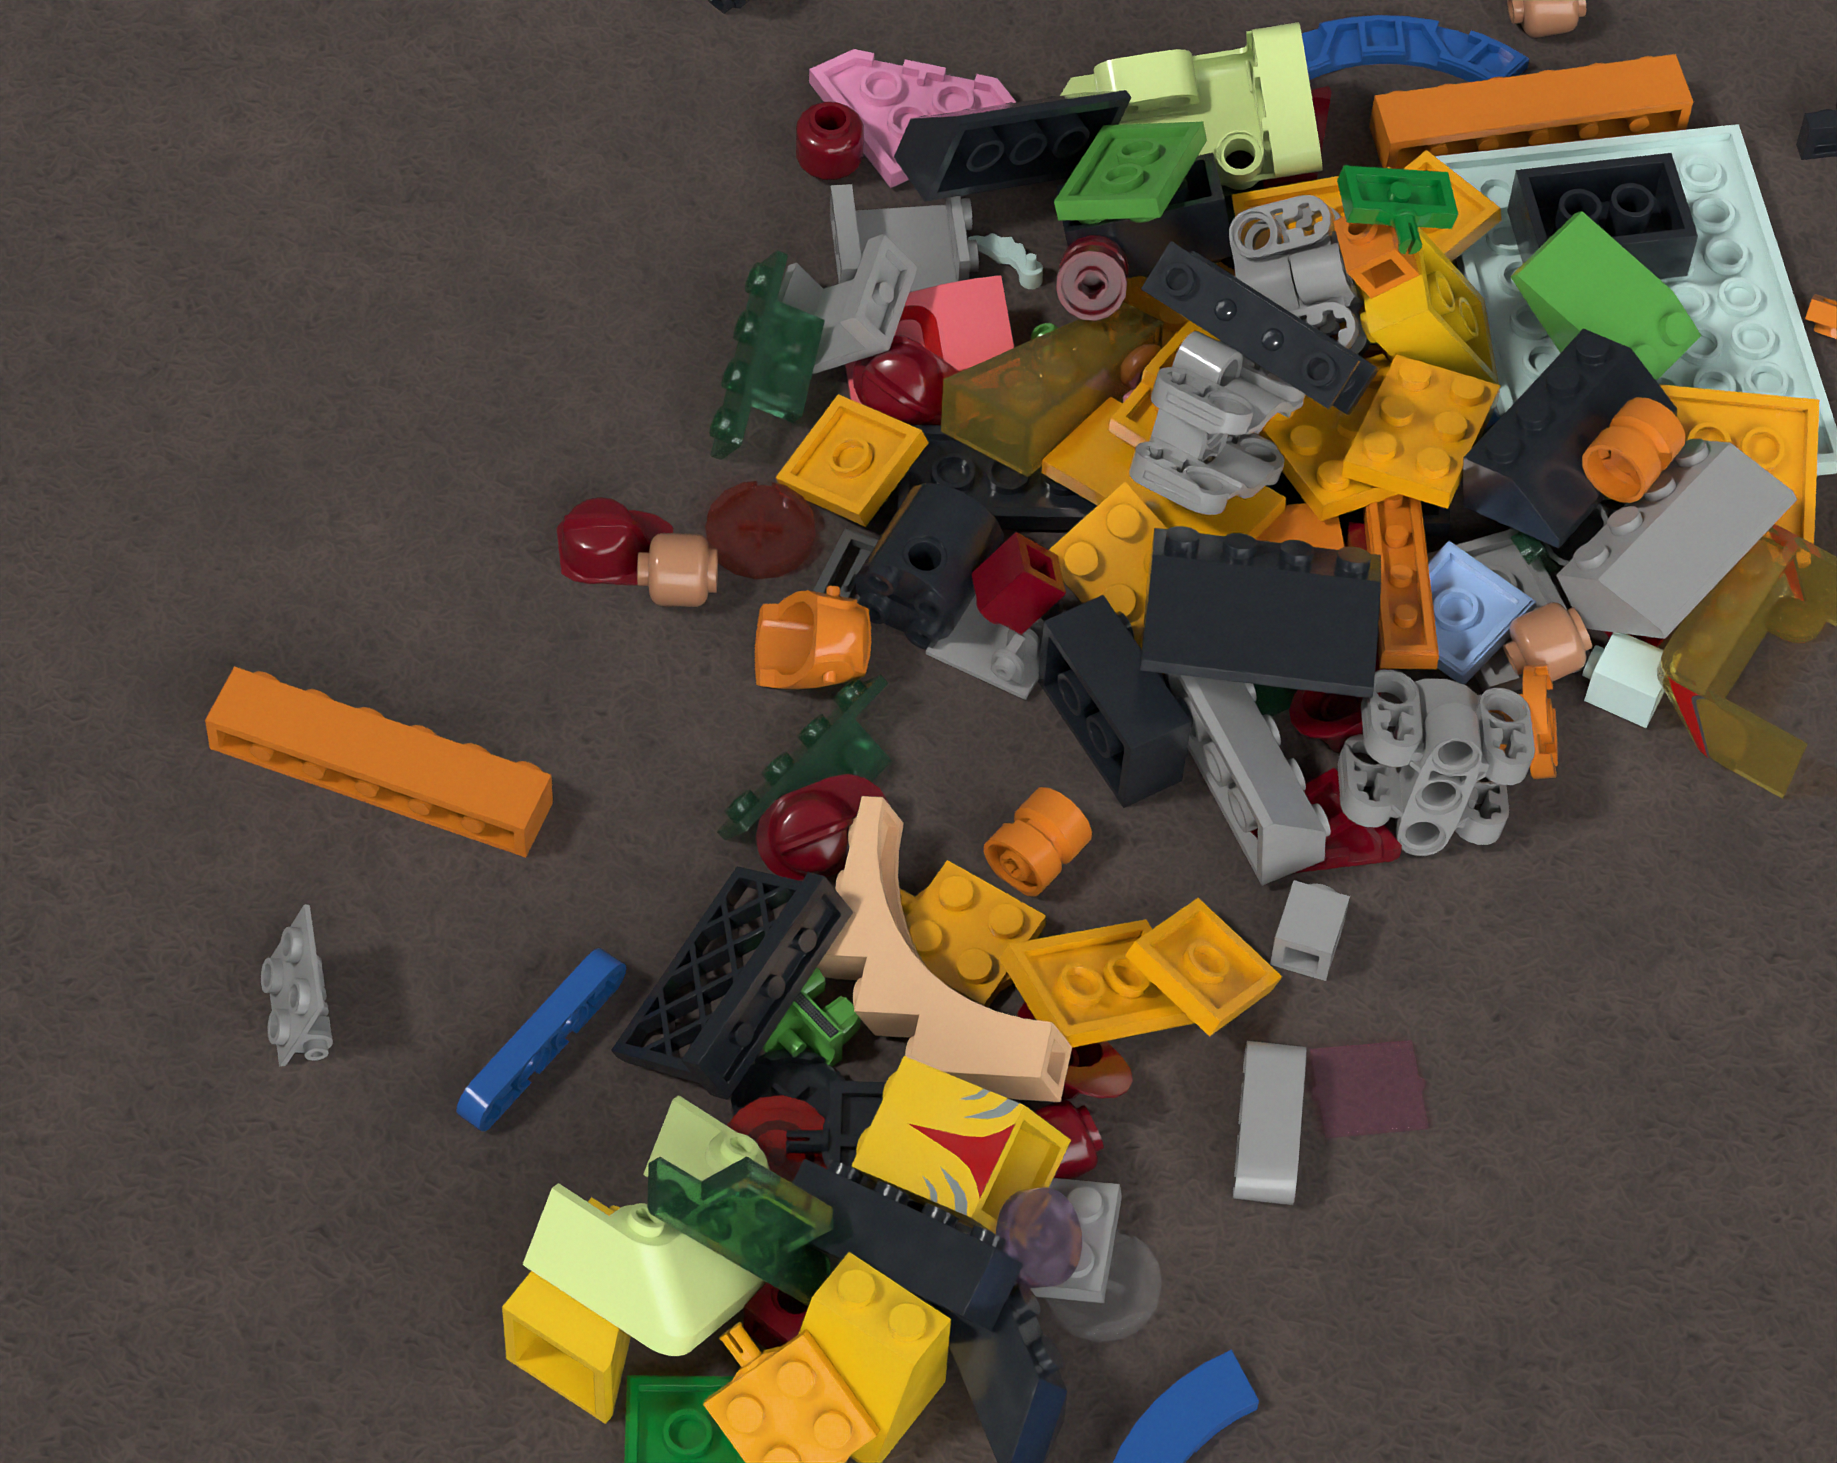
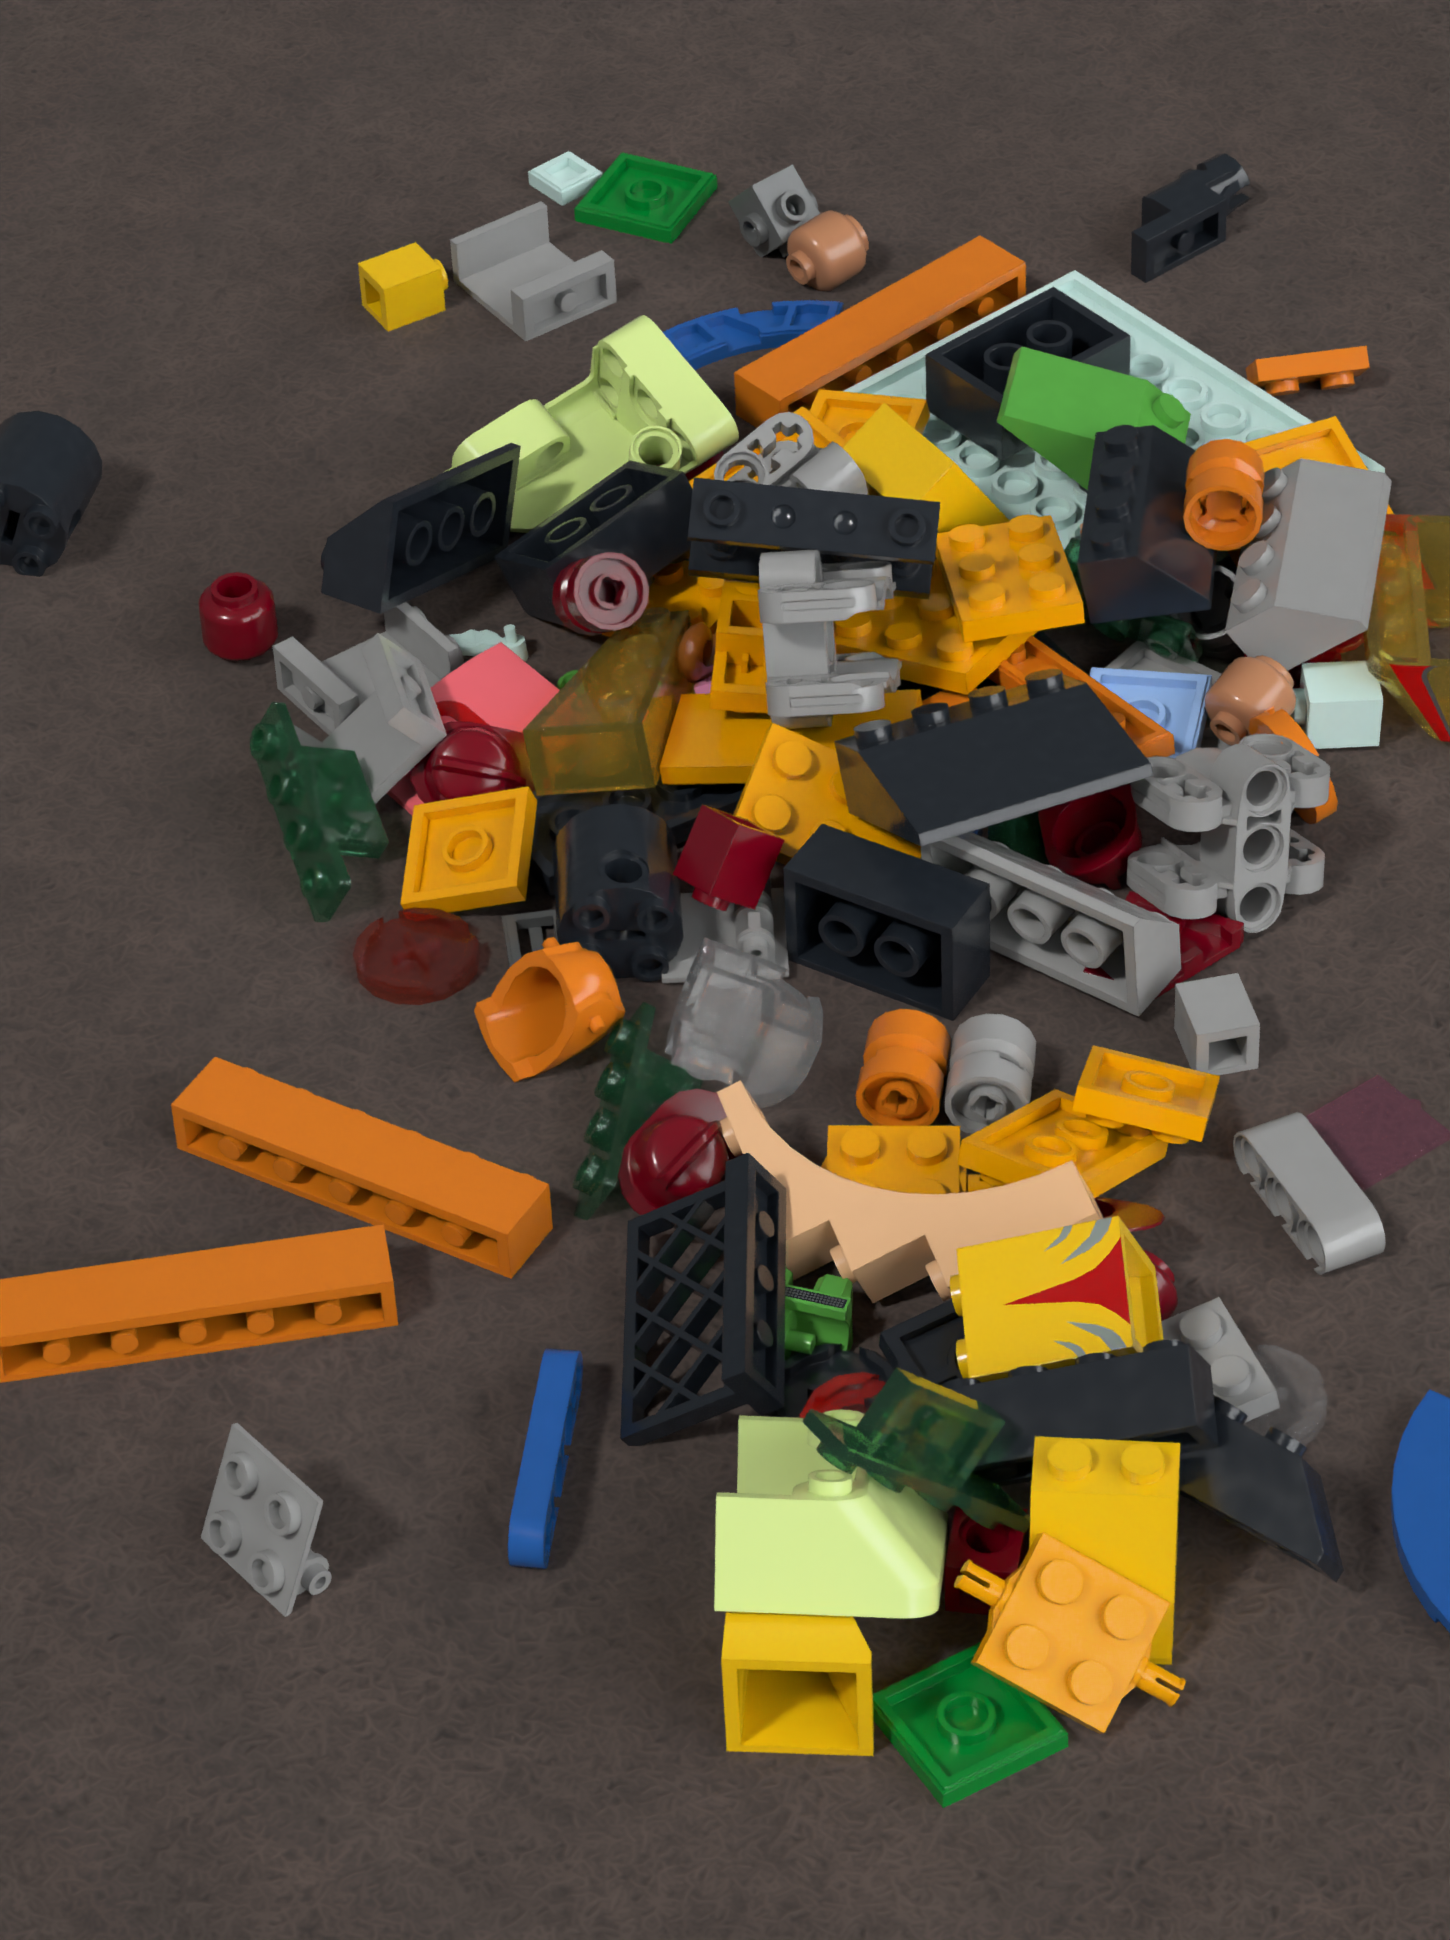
camera: 25 degrees left, 15 degrees down
(585, 707) = (363, 1166): none -> orange brick
(603, 541) = (275, 1028): dark red piece -> none
(679, 569) = (369, 1013): nougat head -> none
(893, 94) = (285, 560): bright pink plate -> none
(940, 738) = (744, 1024): none -> clear brick
(1042, 1235) = (1187, 1325): piece -> none
(1101, 880) = (989, 1071): none -> light grey wheel
(1130, 172) = (571, 498): bright green plate -> none
(1373, 256) = (870, 431): orange brick -> none
(1399, 200) = (874, 367): green plate -> none

